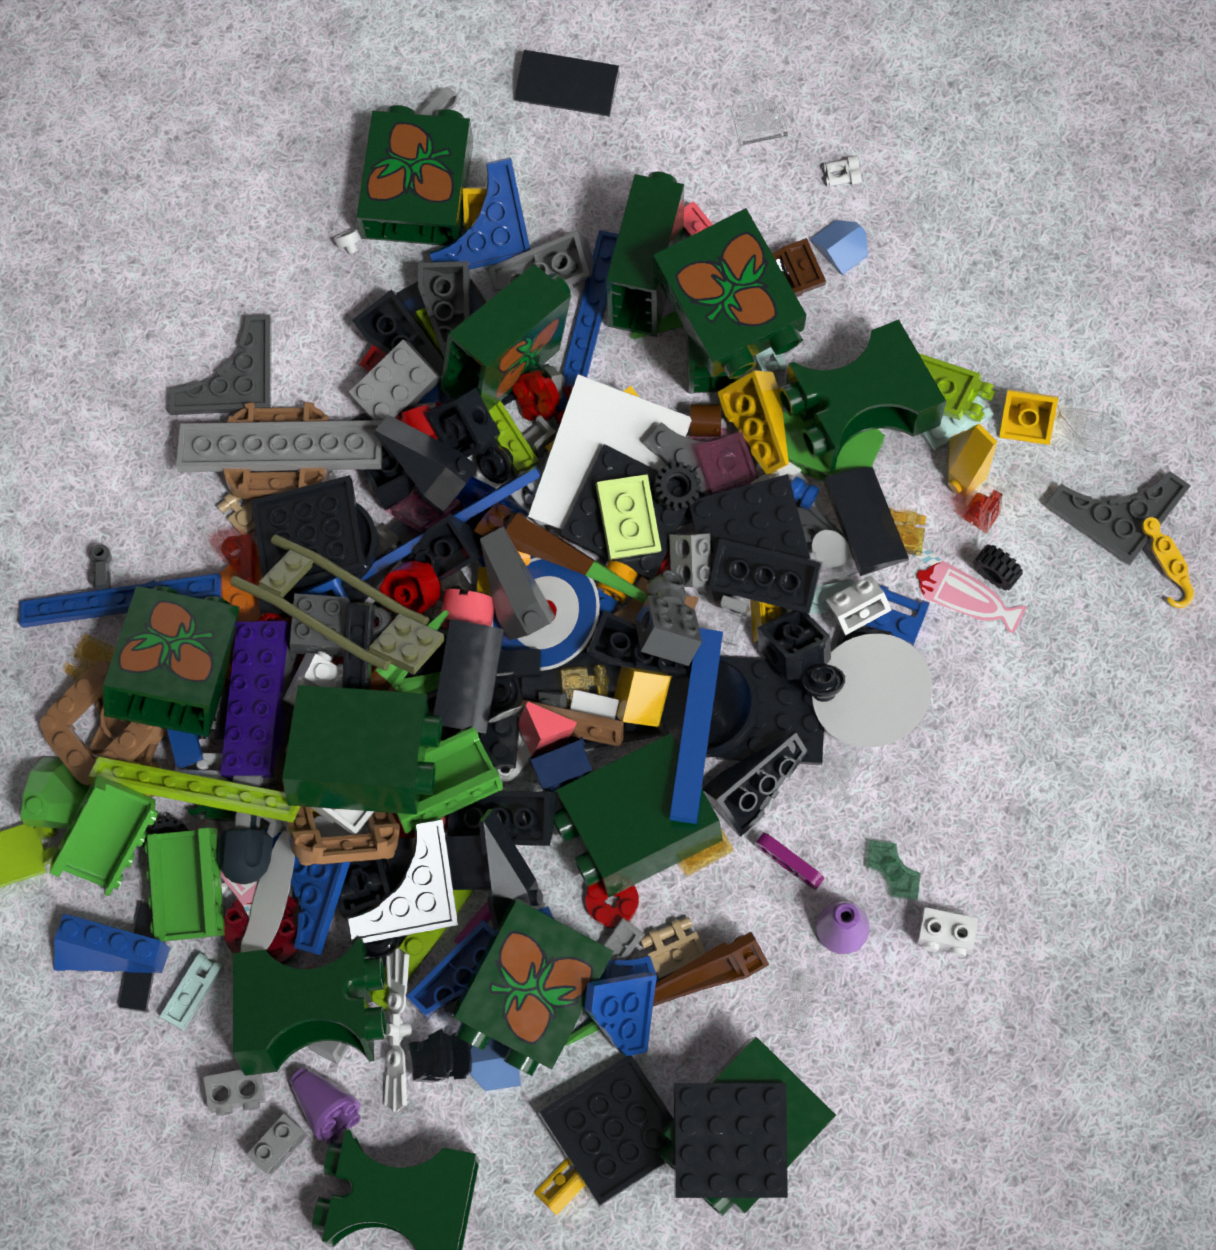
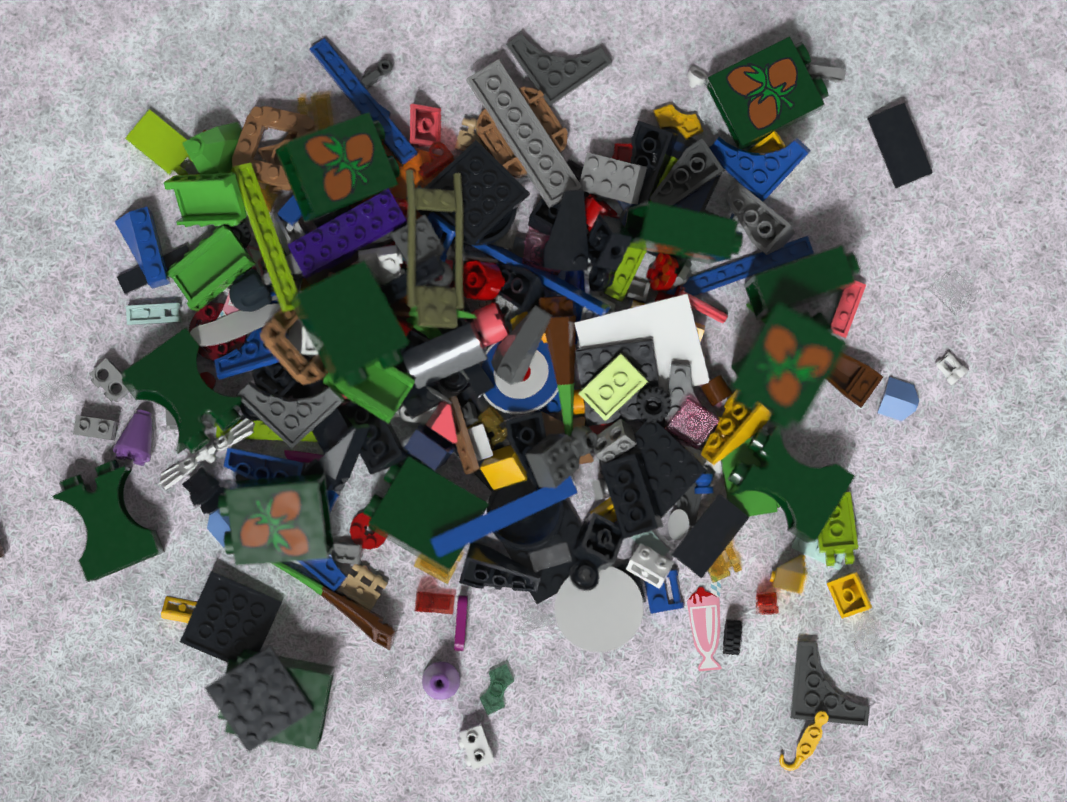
camera: 50 degrees right, 15 degrees up
(194, 552) = (424, 125): none -> coral slope
(392, 278) = (670, 118): none -> yellow tile
(613, 375) = (705, 308): none -> coral axle
(623, 1010) = (301, 583): blue plate -> none
(745, 878) = (434, 602): none -> clear red plate
(777, 708) = (550, 556): none -> clear panel

